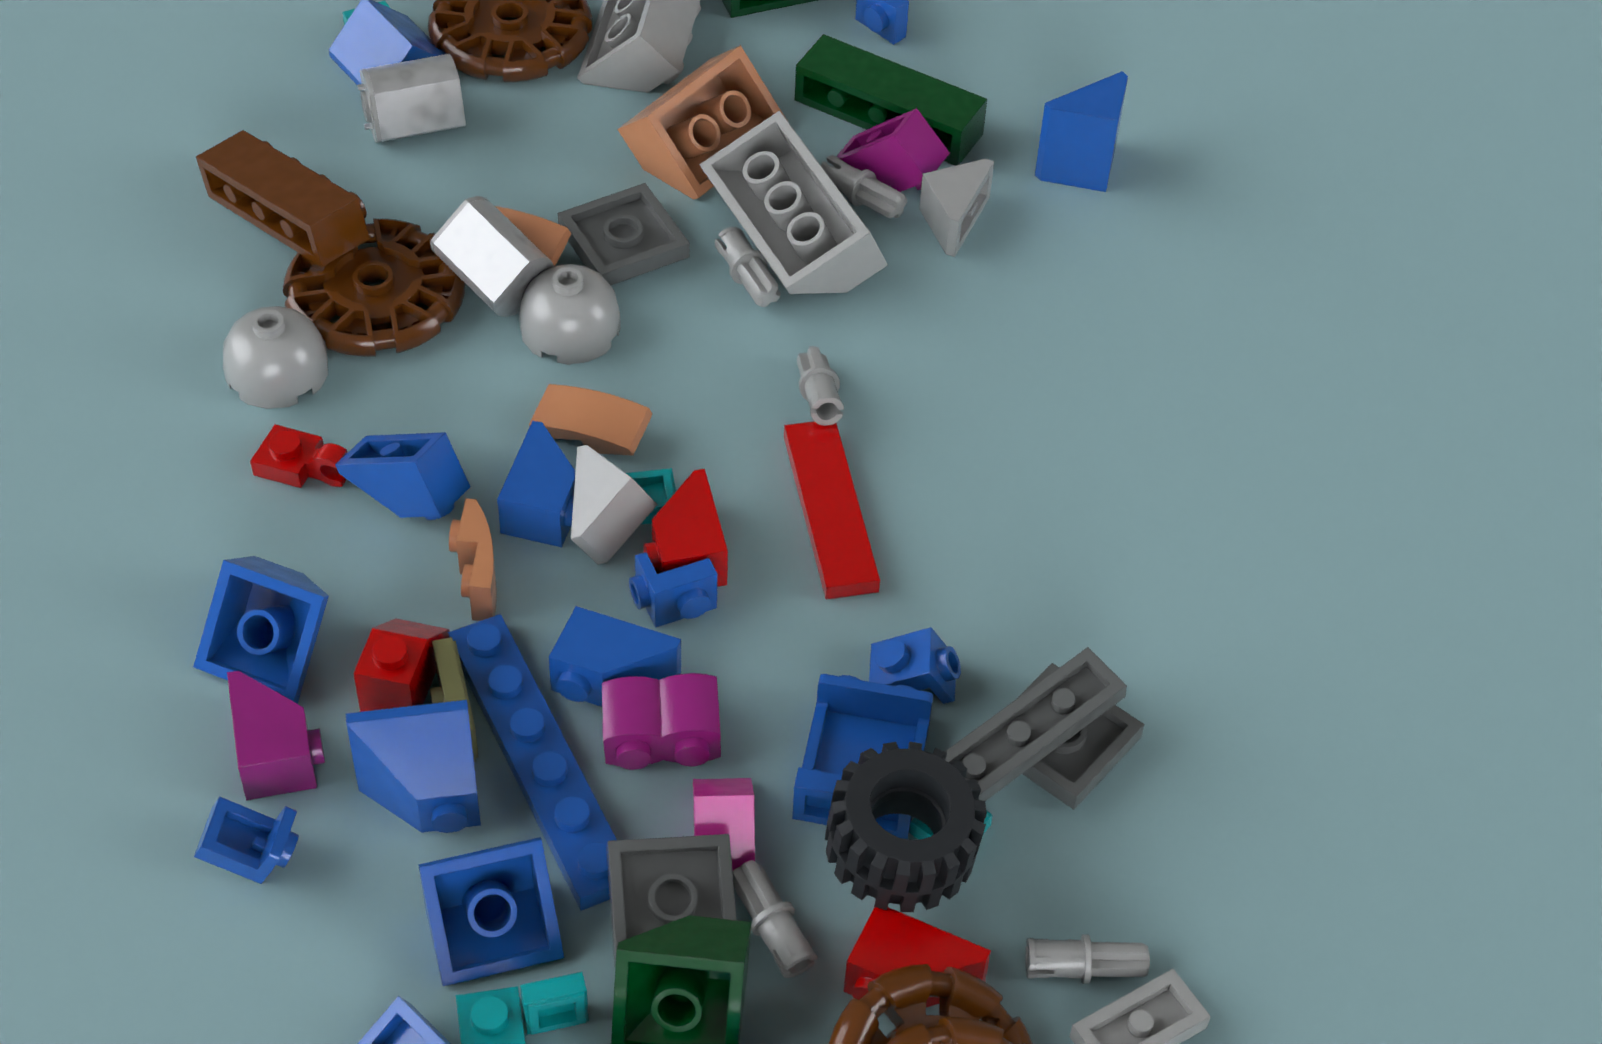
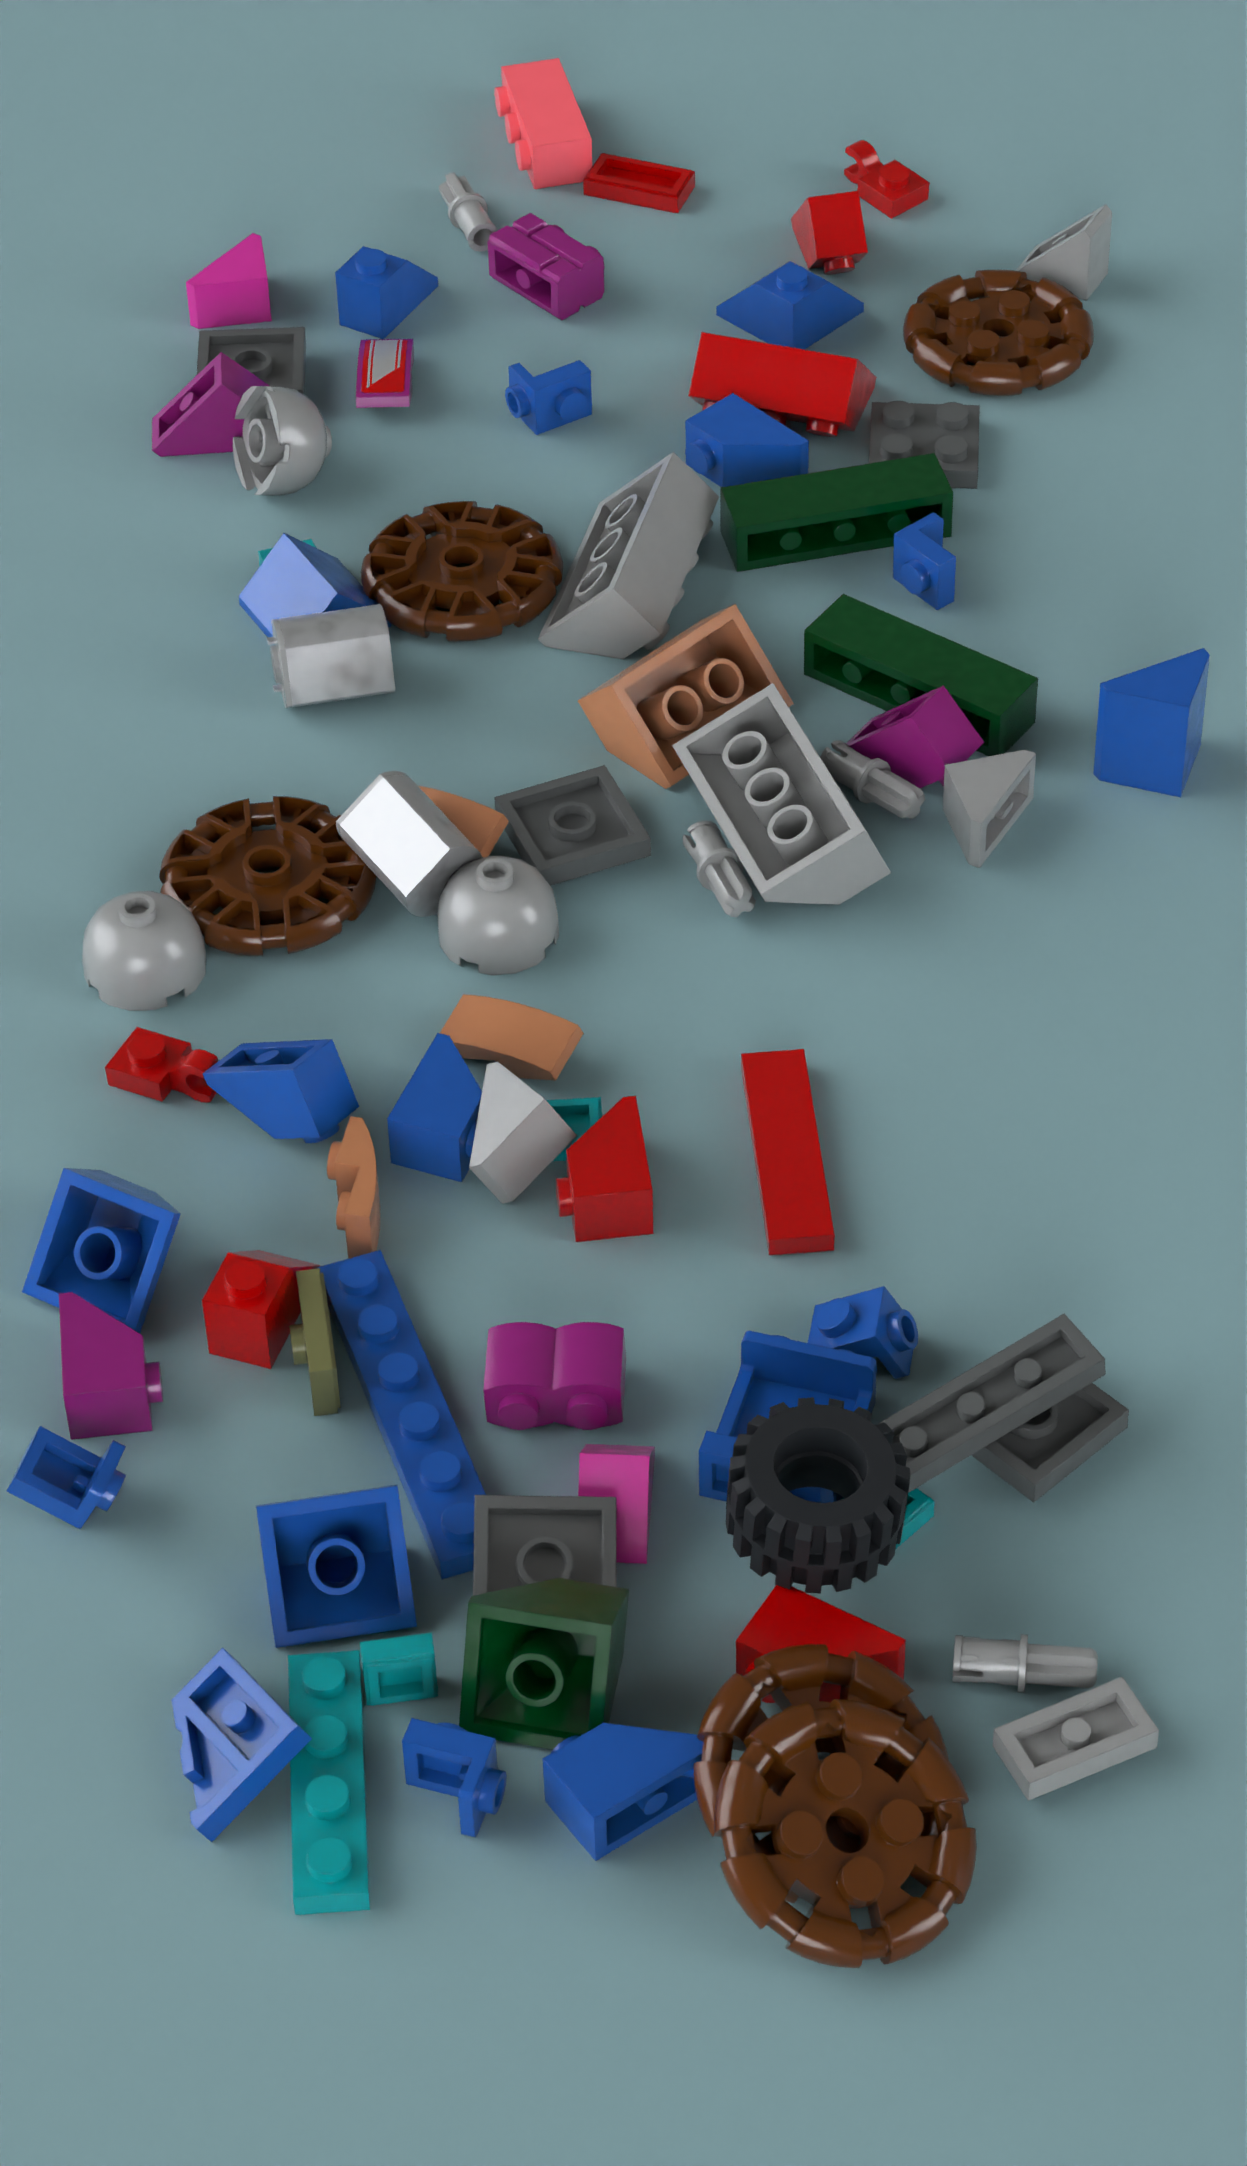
camera: 10 degrees right, 5 degrees down
(284, 198) = (168, 767): reddish brown brick -> none
(418, 763) = (267, 1402): blue slope -> none
(606, 648) = (493, 1290): blue slope -> none
(674, 593) = (587, 1235): blue bracket -> none
(773, 920) = (660, 1598): light grey axle -> none
(819, 387) = (789, 1011): light grey axle -> none

